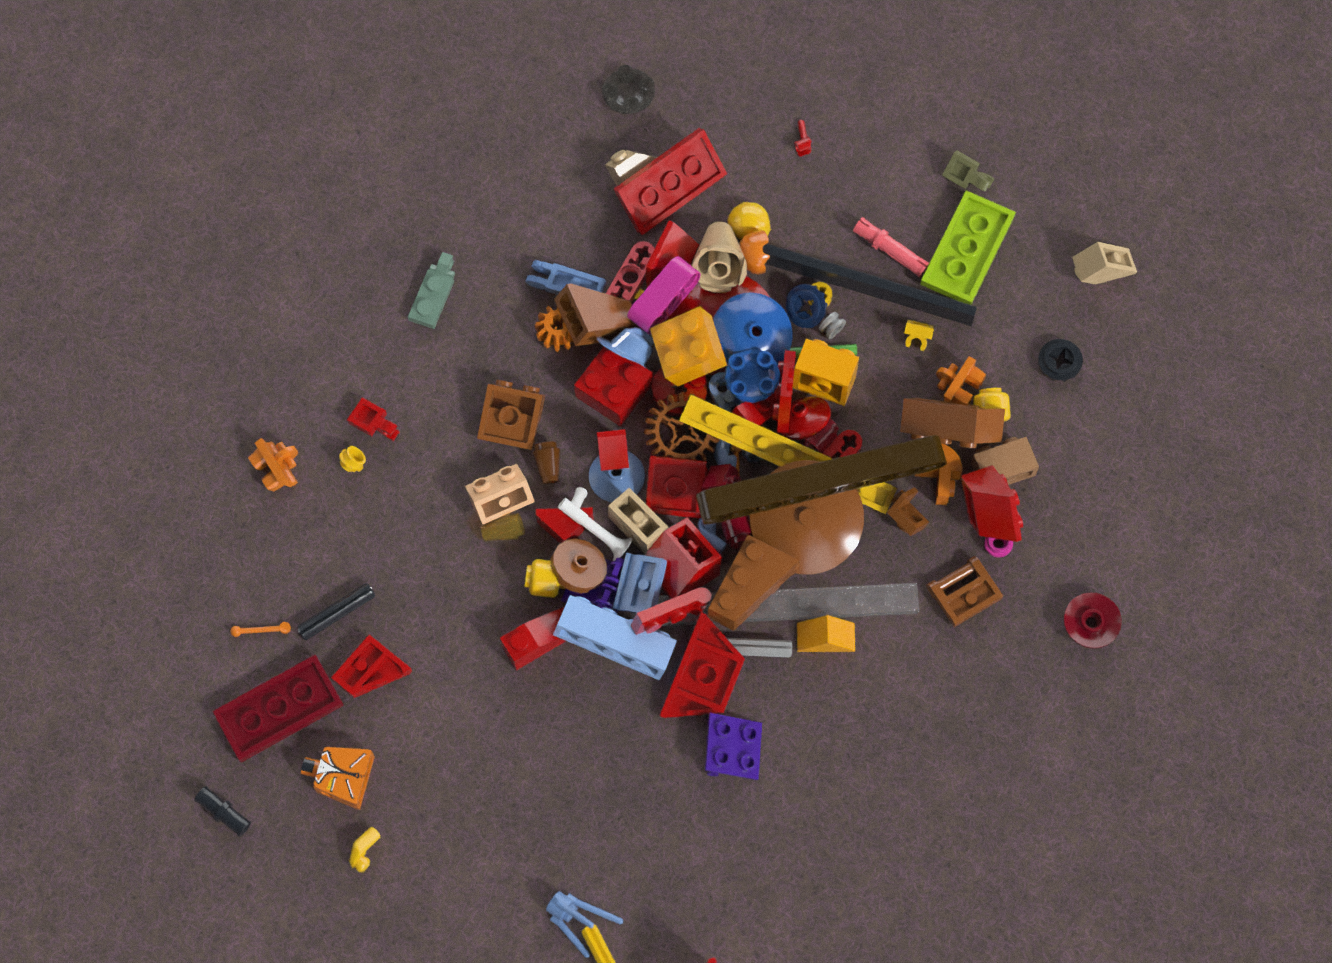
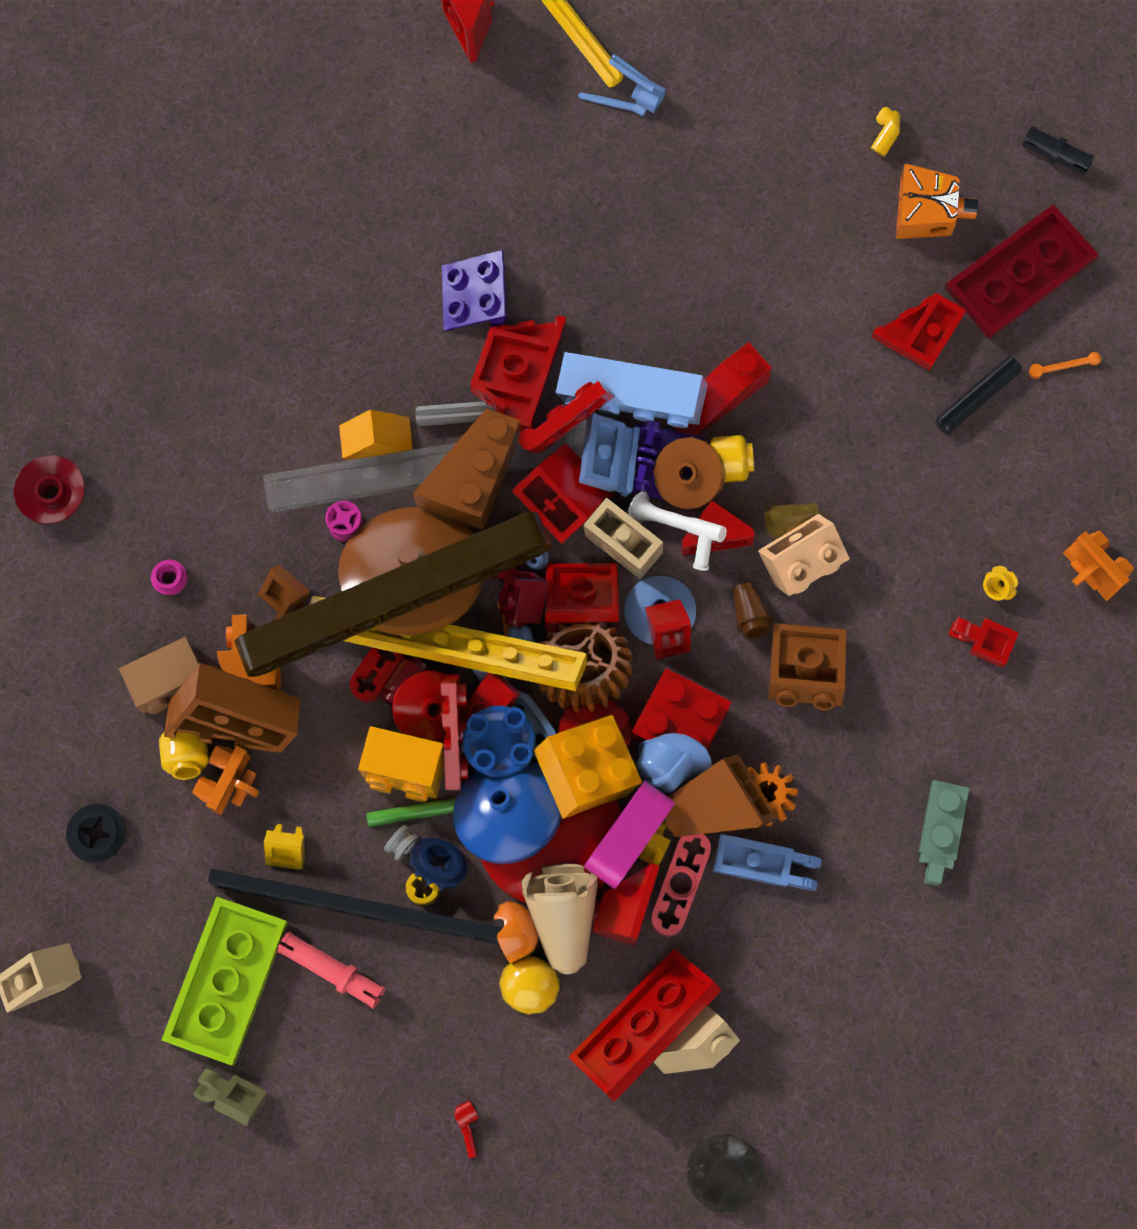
camera: 175 degrees right, 5 degrees up
(859, 563) = (341, 514): none -> dark pink wheel
(968, 599) = (200, 502): dark orange plate -> none
(992, 504) = (177, 605): red slope -> none

